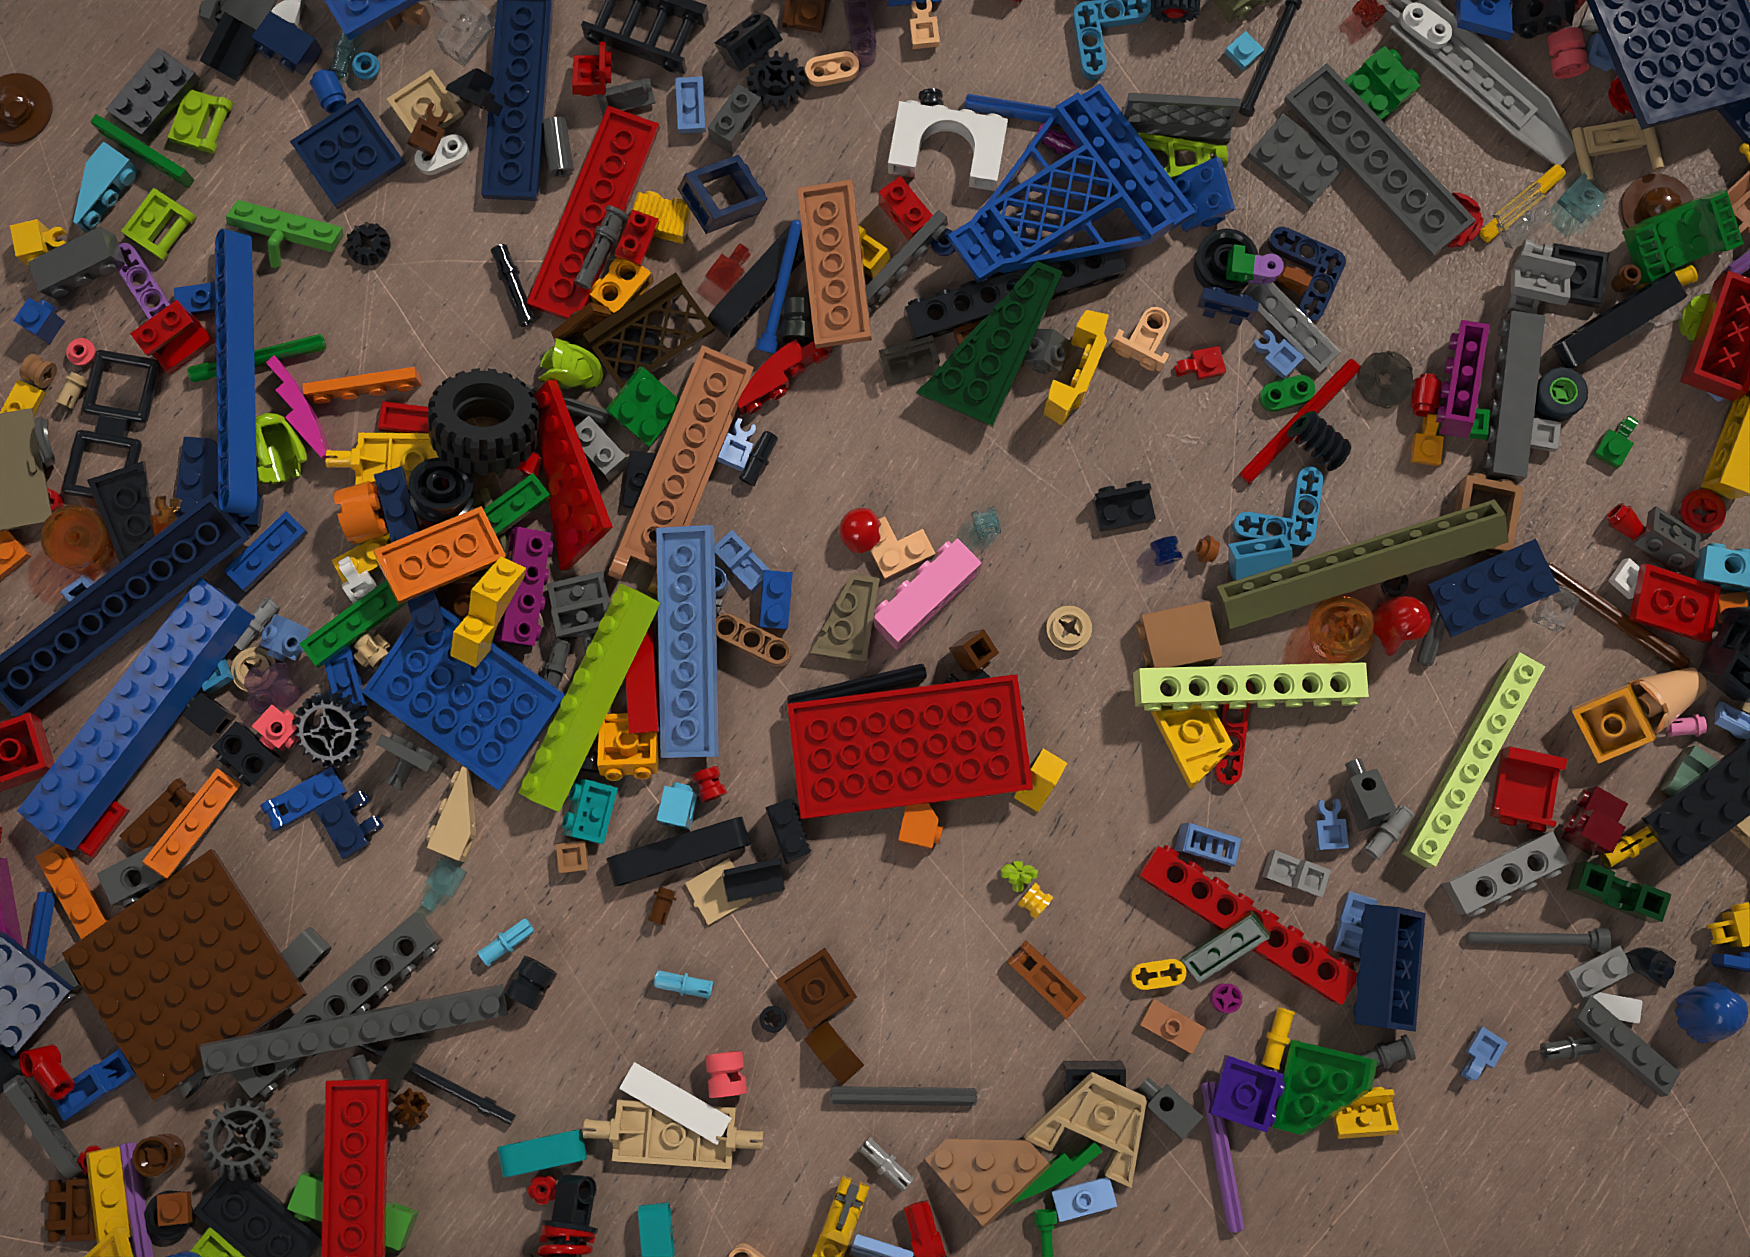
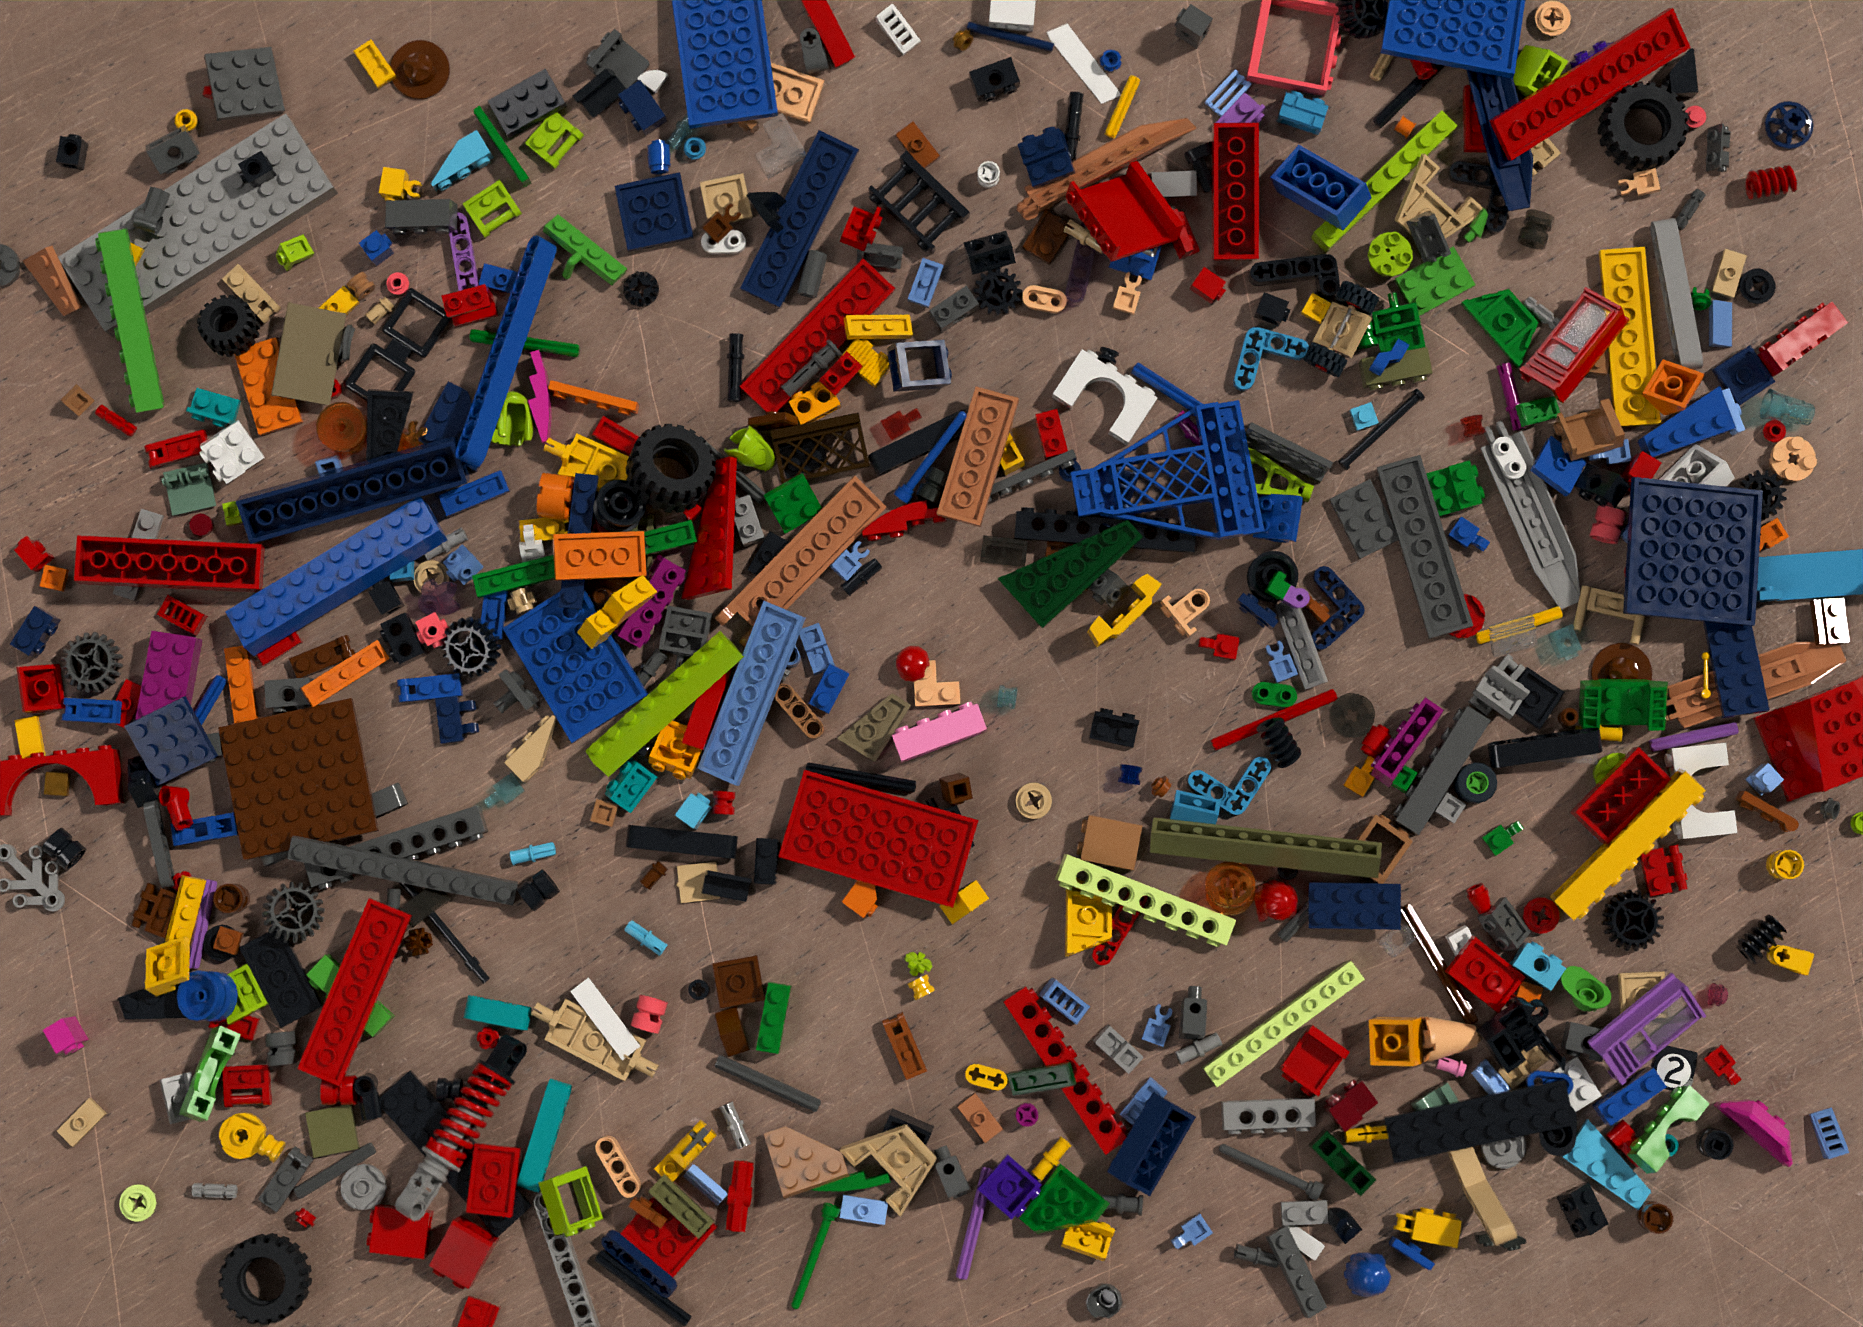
camera: 25 degrees right, 5 degrees up
(656, 171) = (878, 327): none -> yellow plate
(877, 1013) = (773, 1017): none -> green arch
(1416, 129) = (1466, 533): none -> blue plate
(1419, 1182) = (1104, 1301): none -> dark grey hair

